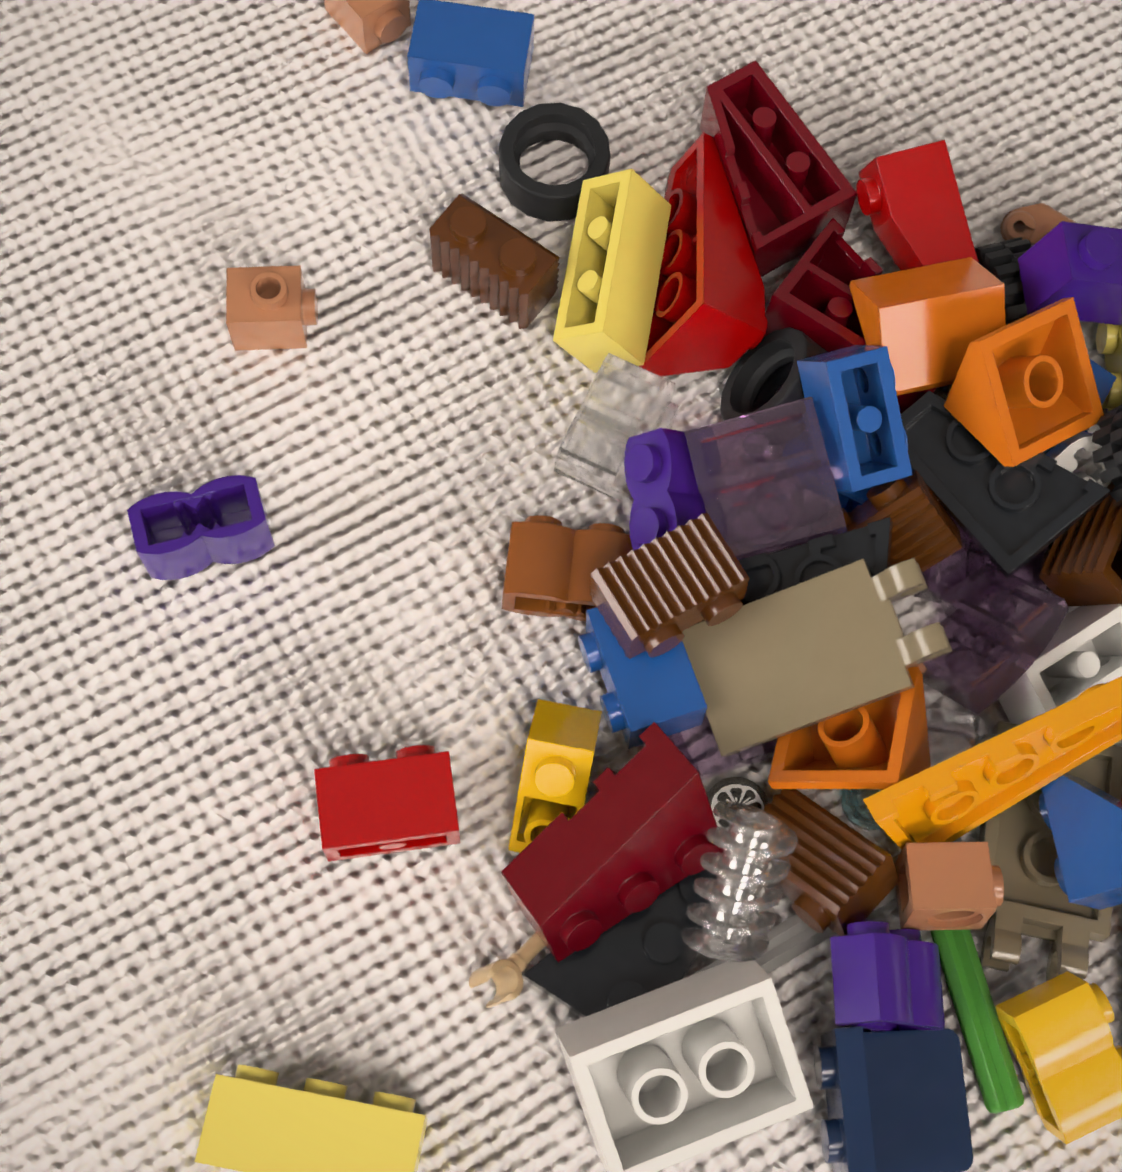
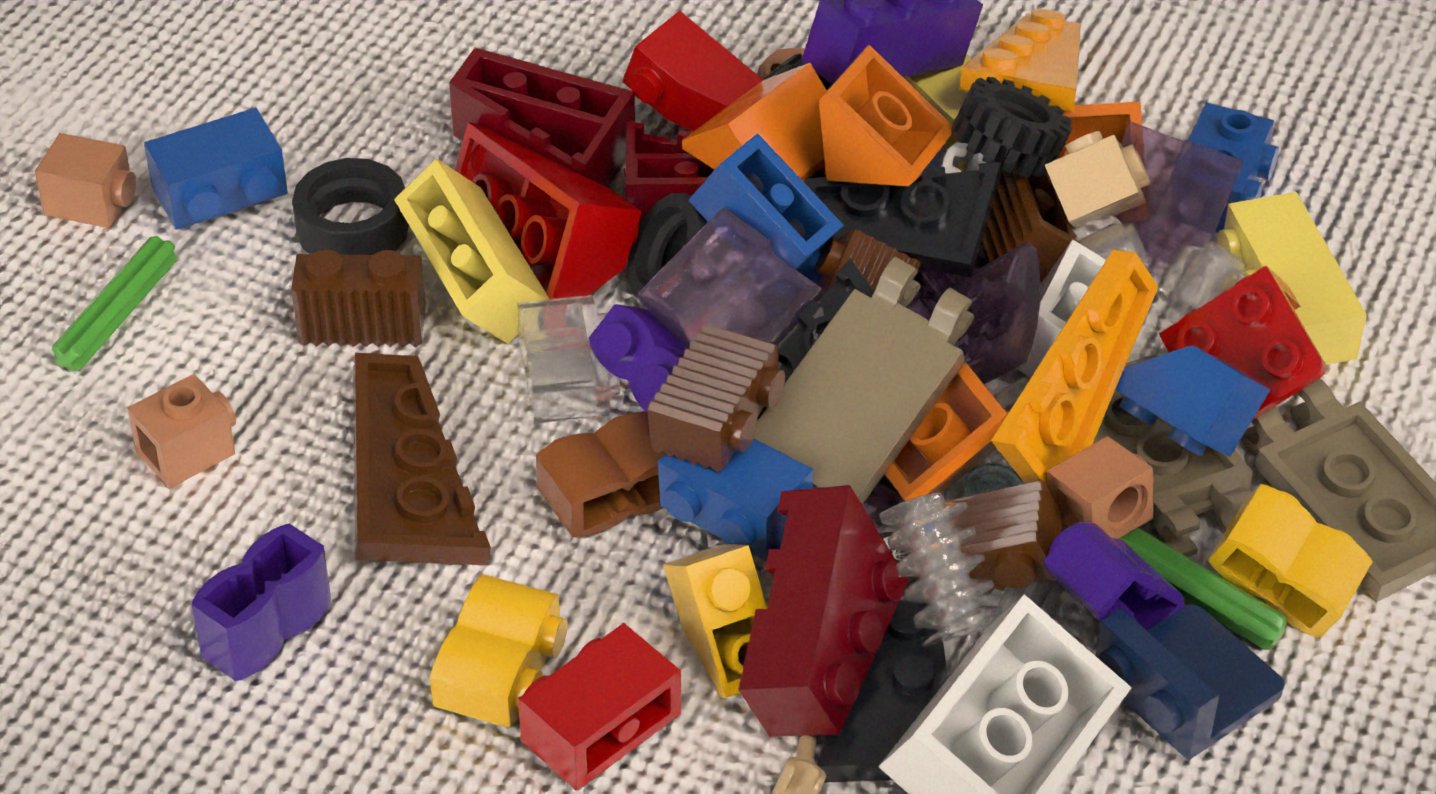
camera: 30 degrees left, 25 degrees down
(311, 139) = (114, 303): none -> bright green axle
(356, 690) = (497, 649): none -> yellow brick
(408, 468) = (406, 471): none -> reddish brown wing

